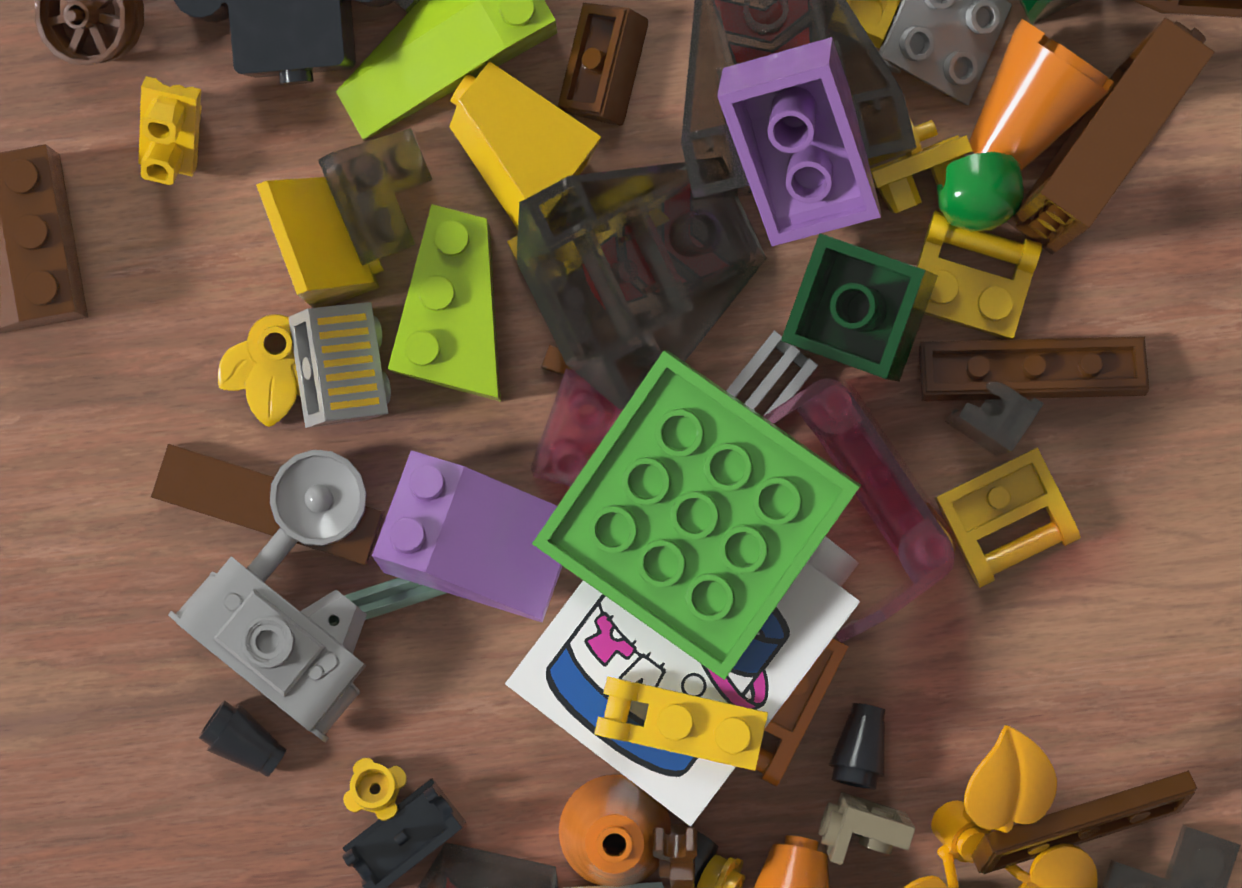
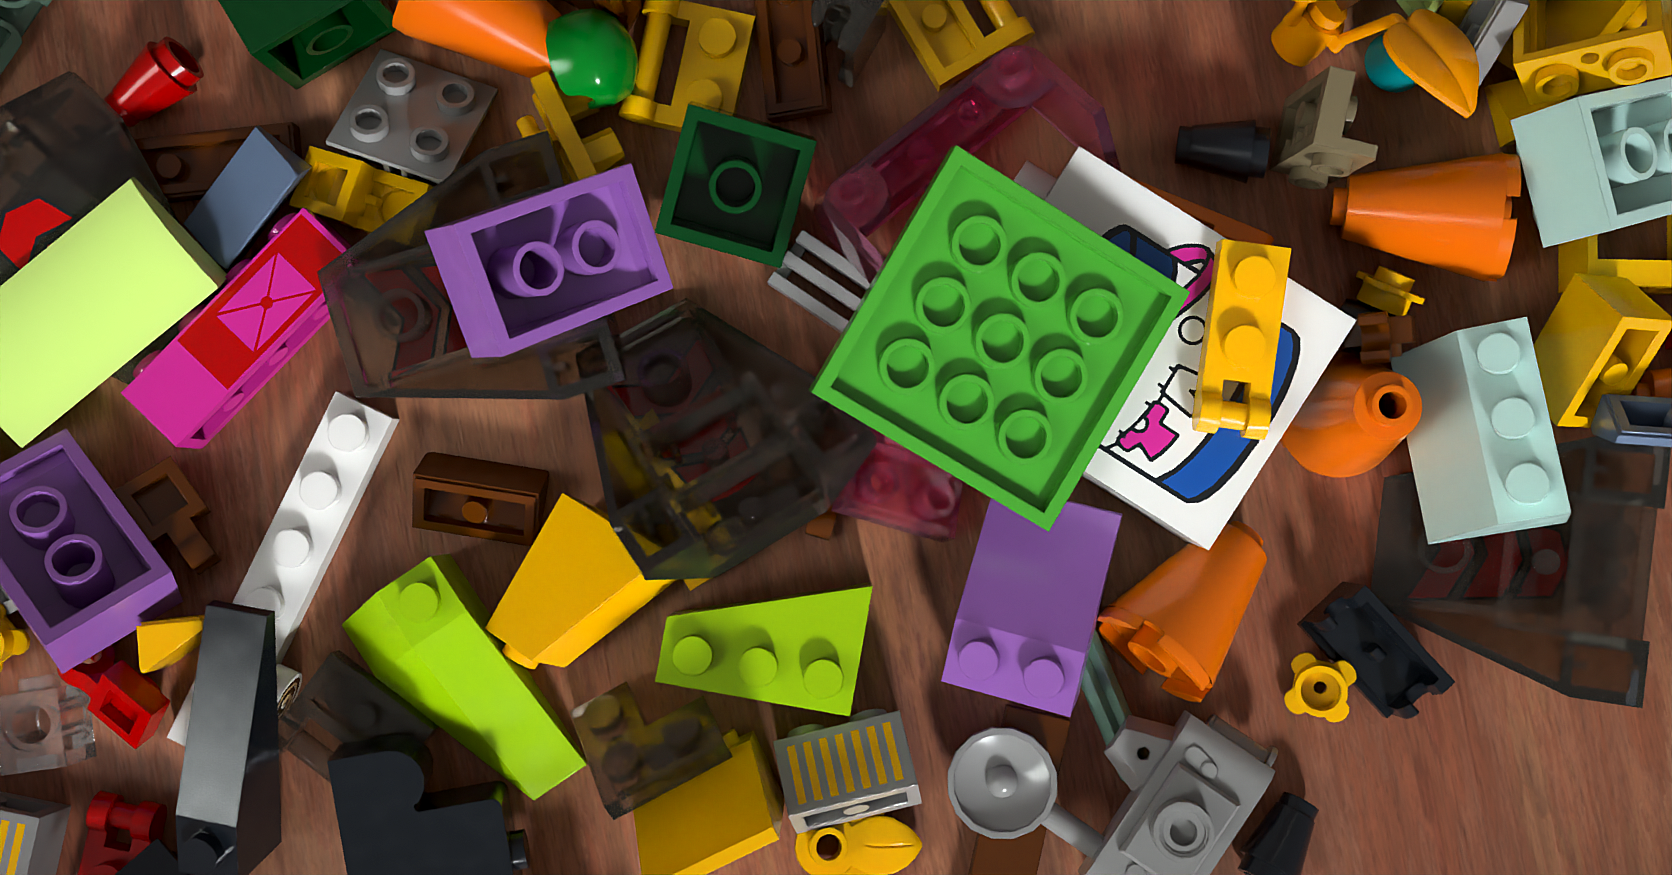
camera: 100 degrees left, 0 degrees up
(455, 675) = (1187, 611): none -> orange cone

